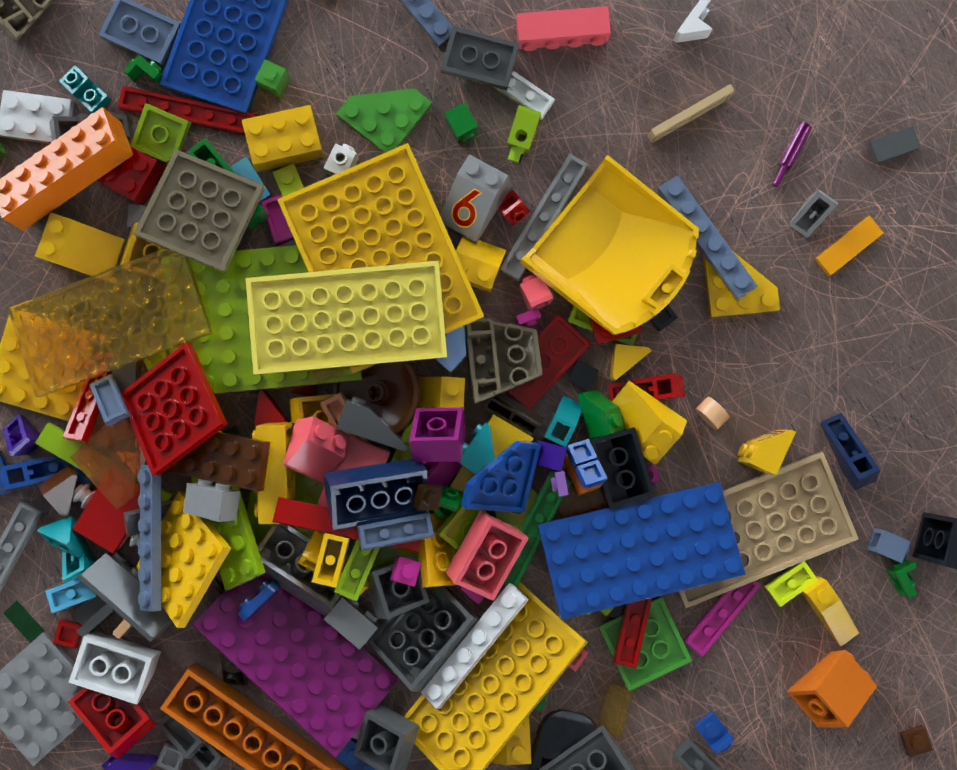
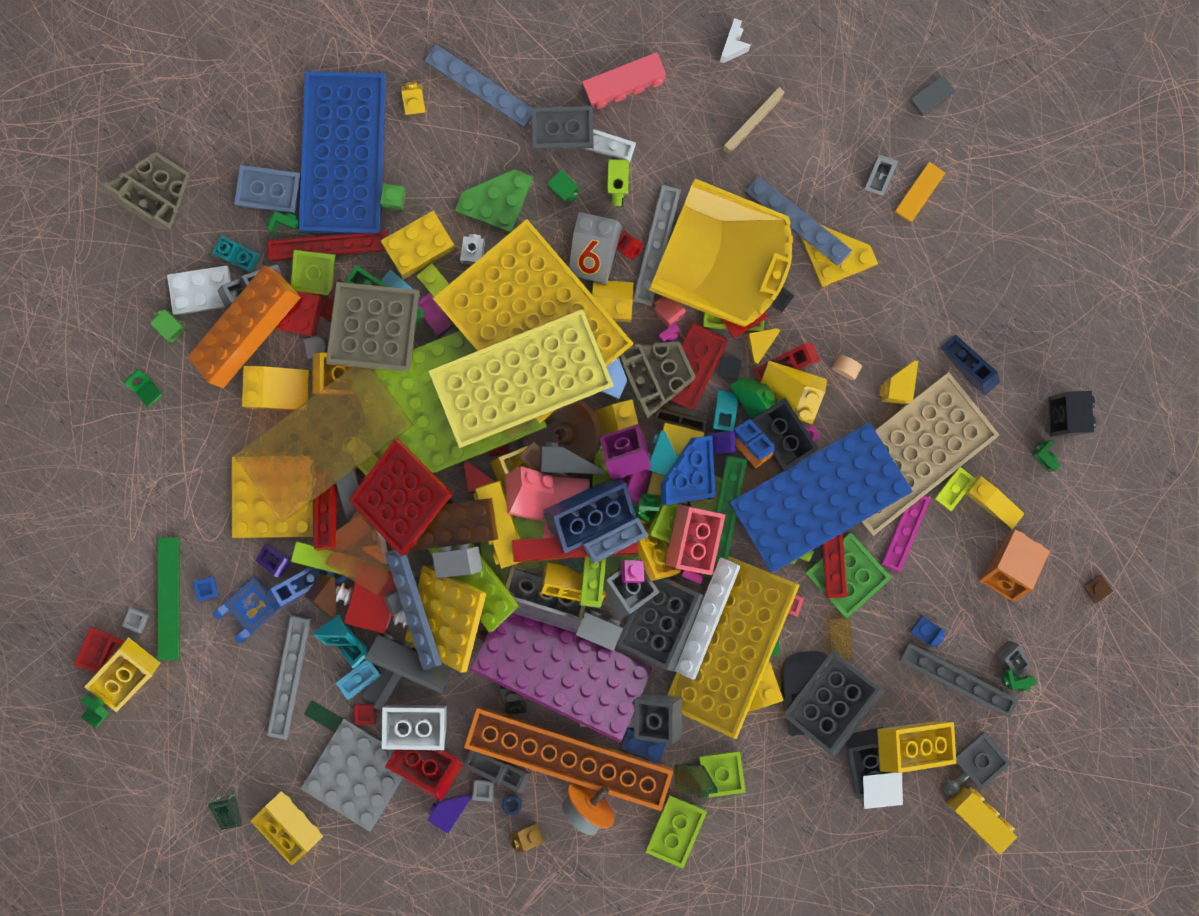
camera: 15 degrees left, 0 degrees up
(109, 400) = (343, 506): sand blue tile -> none
(122, 630) = (412, 691): light nougat tile -> none
(250, 605) = (513, 639): blue plate -> none
(331, 560) = (570, 578): yellow slope -> none
(427, 497) = (633, 504): dark brown plate -> none
(559, 483) = (737, 463): medium lavender plate -> none
(792, 151) = (848, 127): magenta axle -> none
(889, 545) = (1027, 432): sand blue brick -> none

